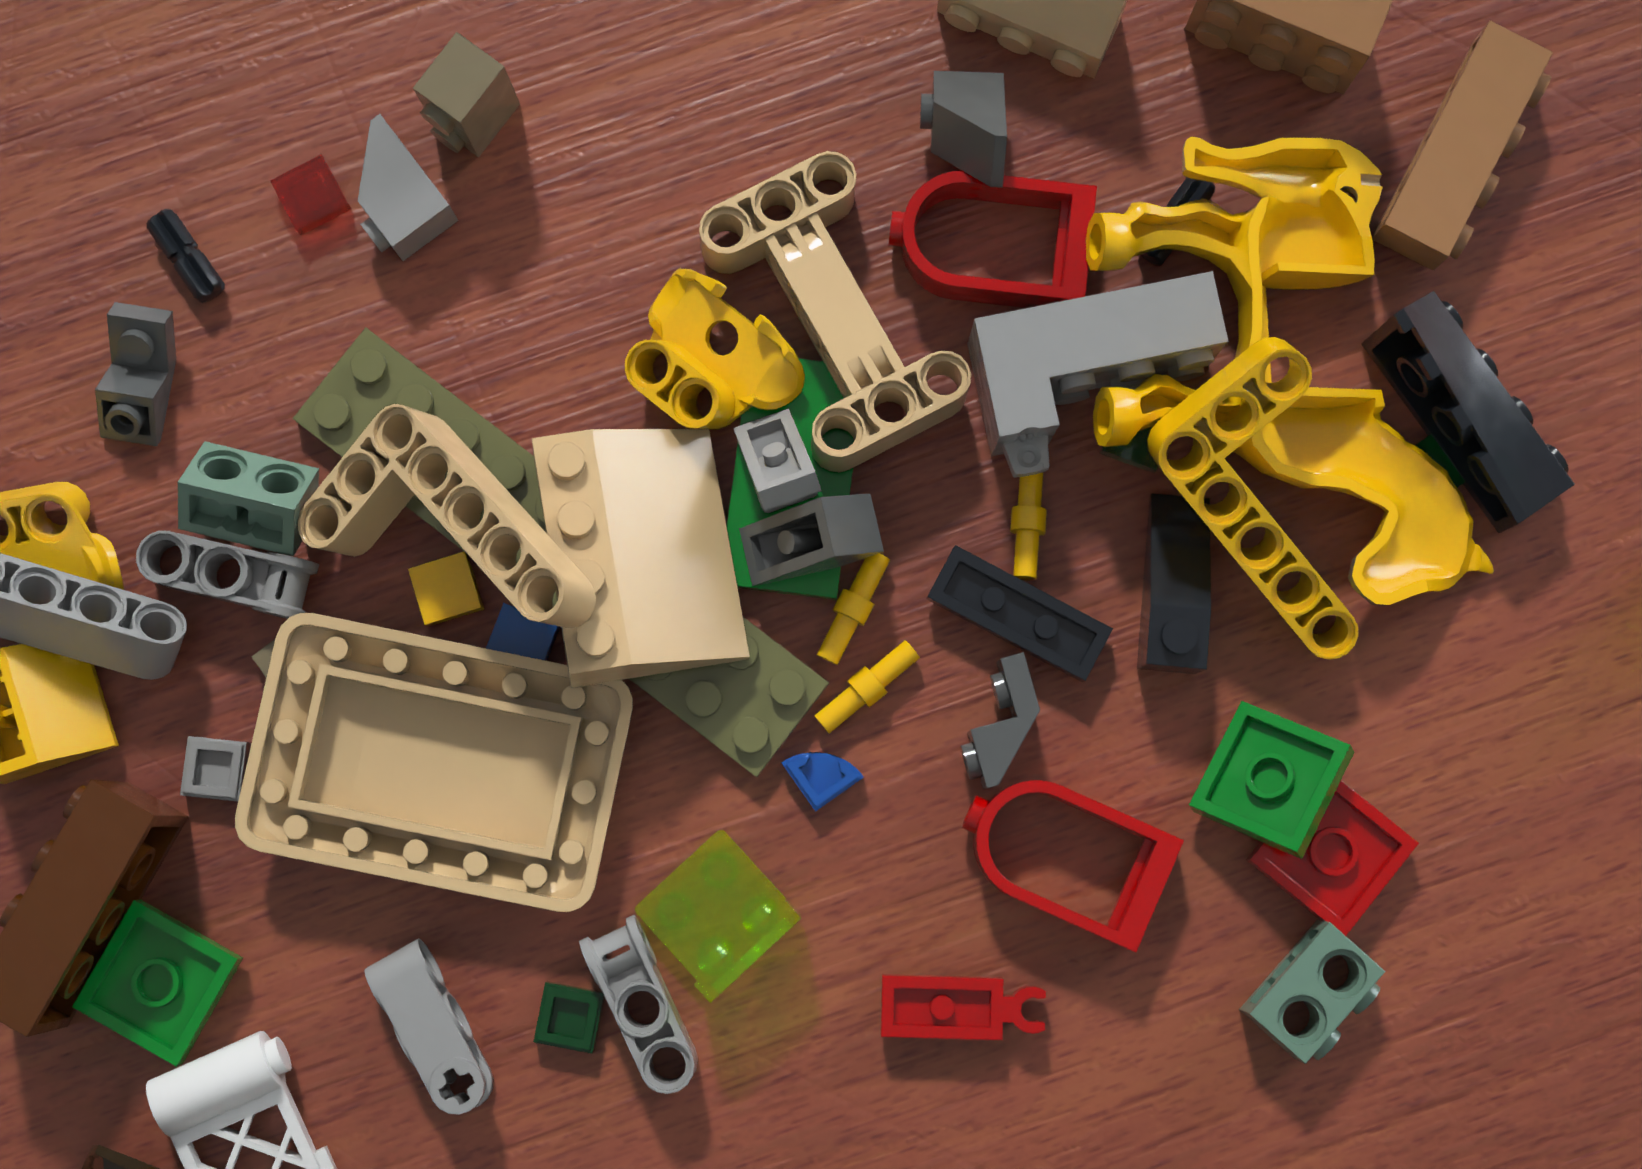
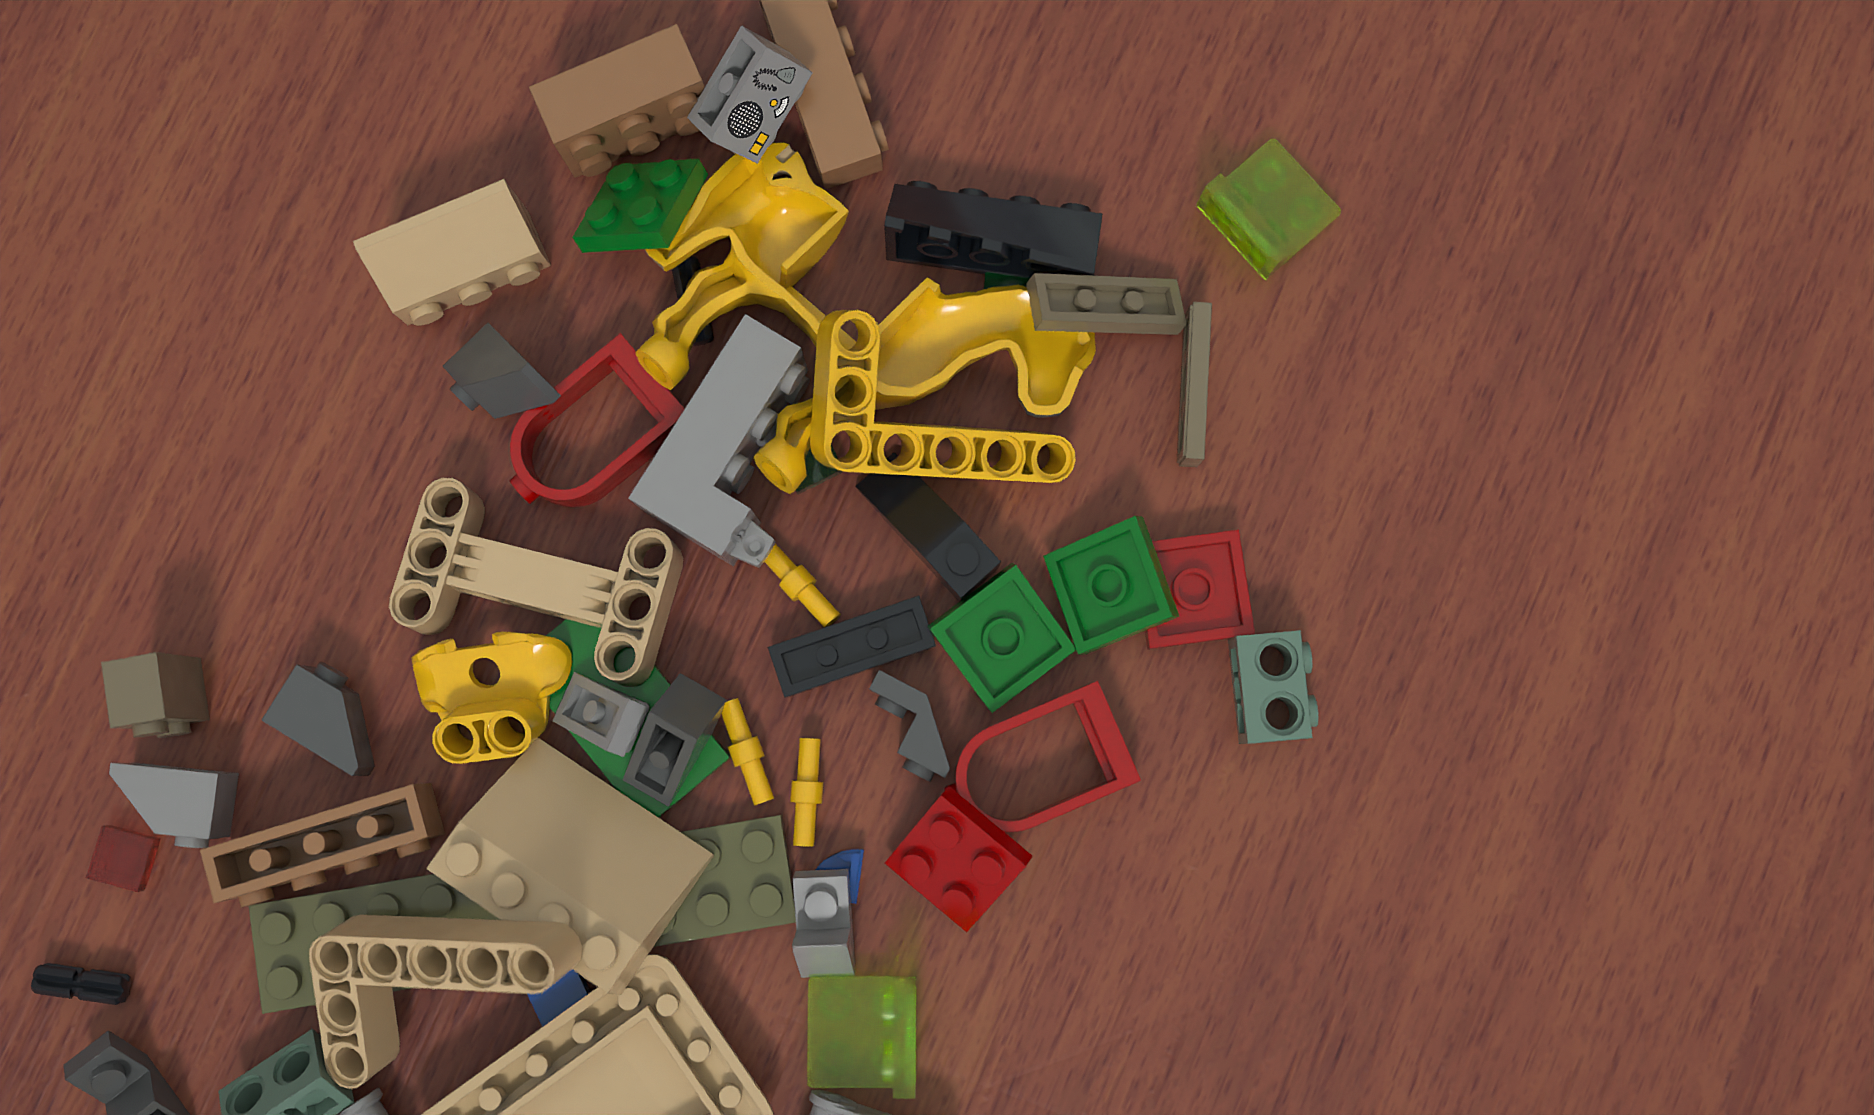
camera: 50 degrees left, 0 degrees up
(446, 589) = (477, 1017): yellow tile -> none
(471, 338) = (321, 842): none -> medium nougat brick
(567, 244) = (323, 717): none -> dark grey slope
(775, 800) = (823, 923): none -> light grey slope
(930, 861) = (958, 859): none -> red plate
(953, 1007) = (1067, 933): red plate -> none
(1143, 729) = (1002, 637): none -> green plate
(1216, 104) = (640, 206): none -> green plate
(1394, 105) = (749, 95): none -> light grey brick
(1501, 558) = (1105, 304): none -> dark tan plate
(1504, 694) = (1194, 385): none -> dark tan tile

